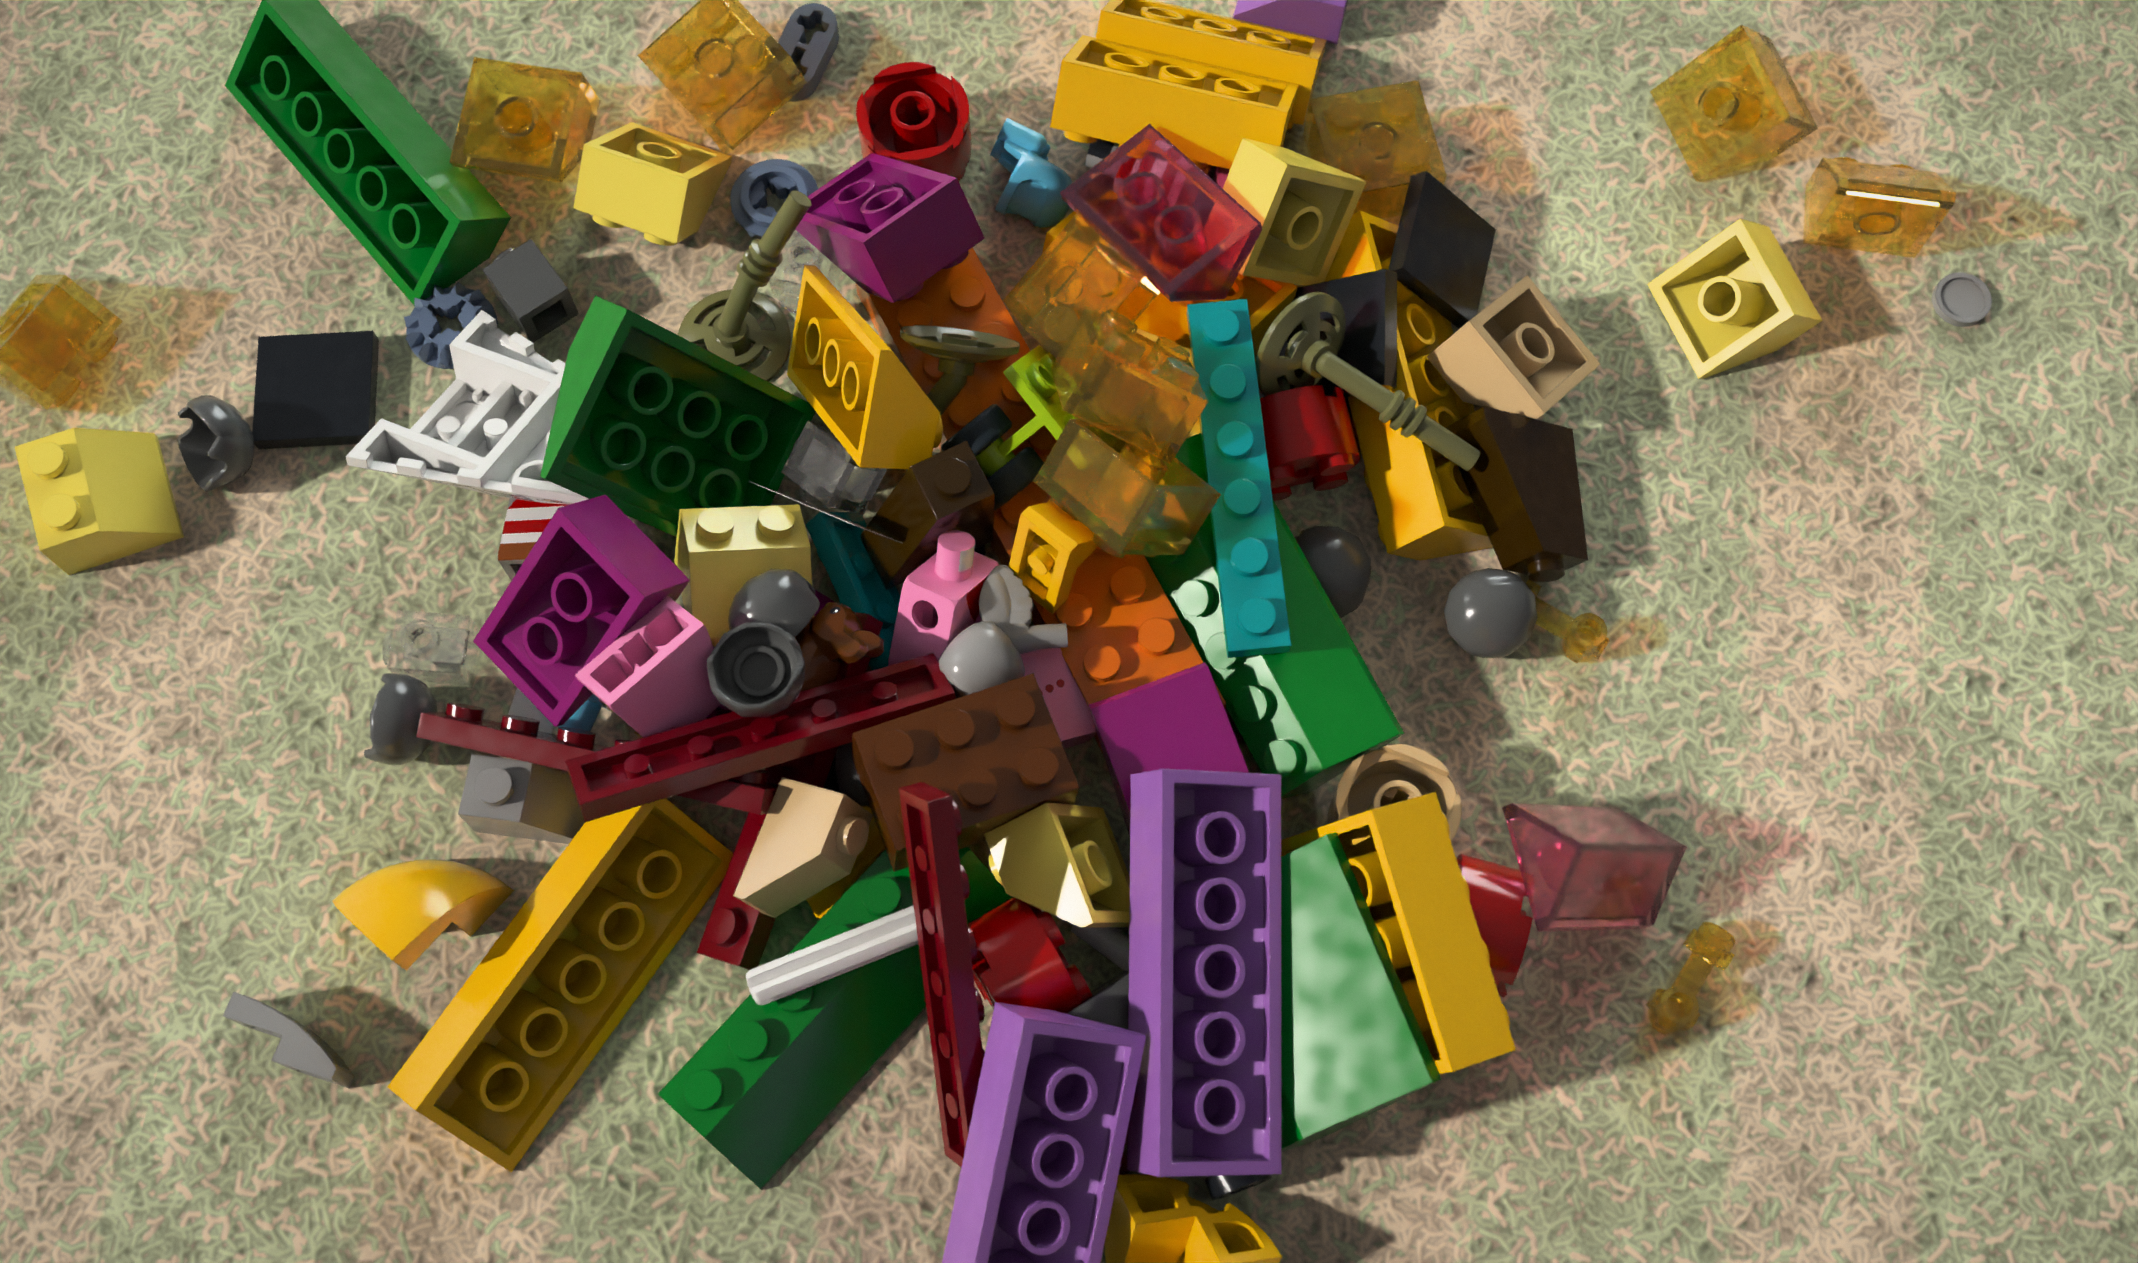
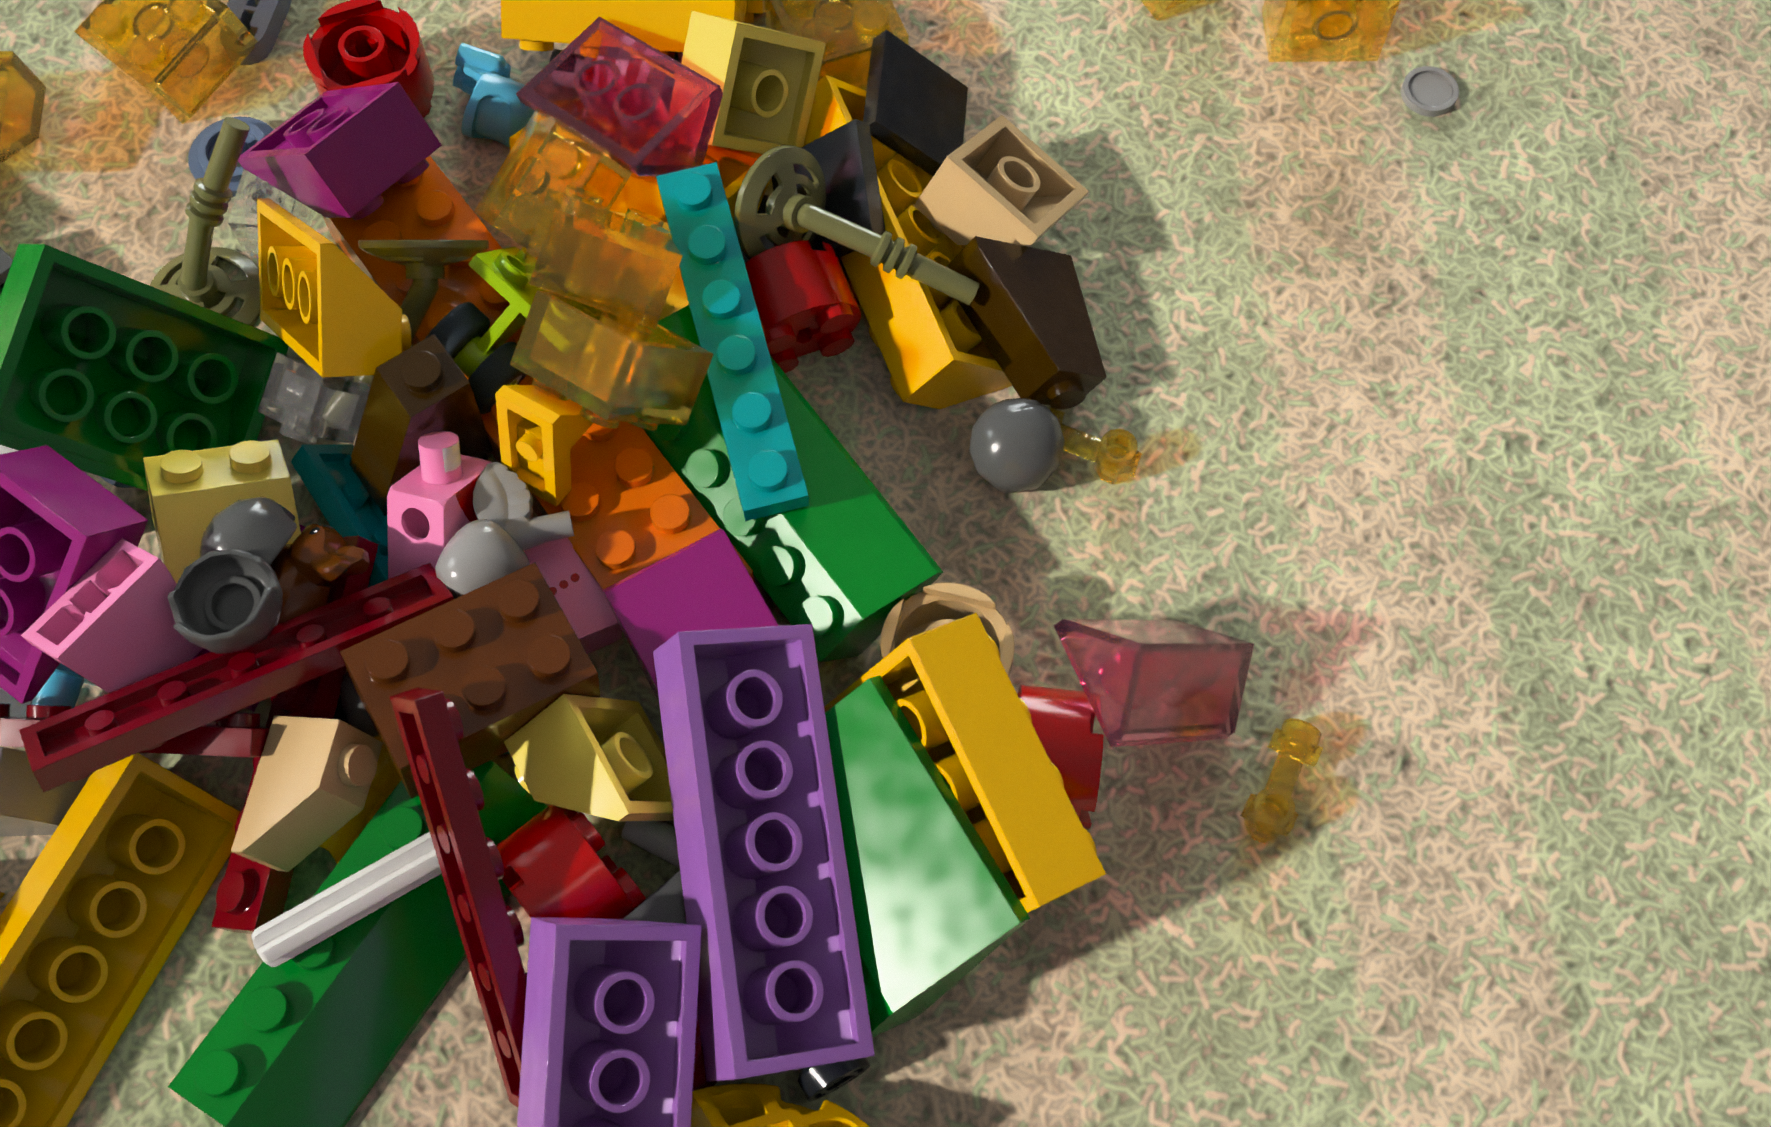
camera: 10 degrees left, 5 degrees down
(649, 182) = (99, 156): light yellow slope -> none
(855, 524) = (304, 439): sticker -> none
(1339, 565) = (857, 423): dark grey hair -> none
(1734, 299) = (1210, 117): light yellow slope -> none

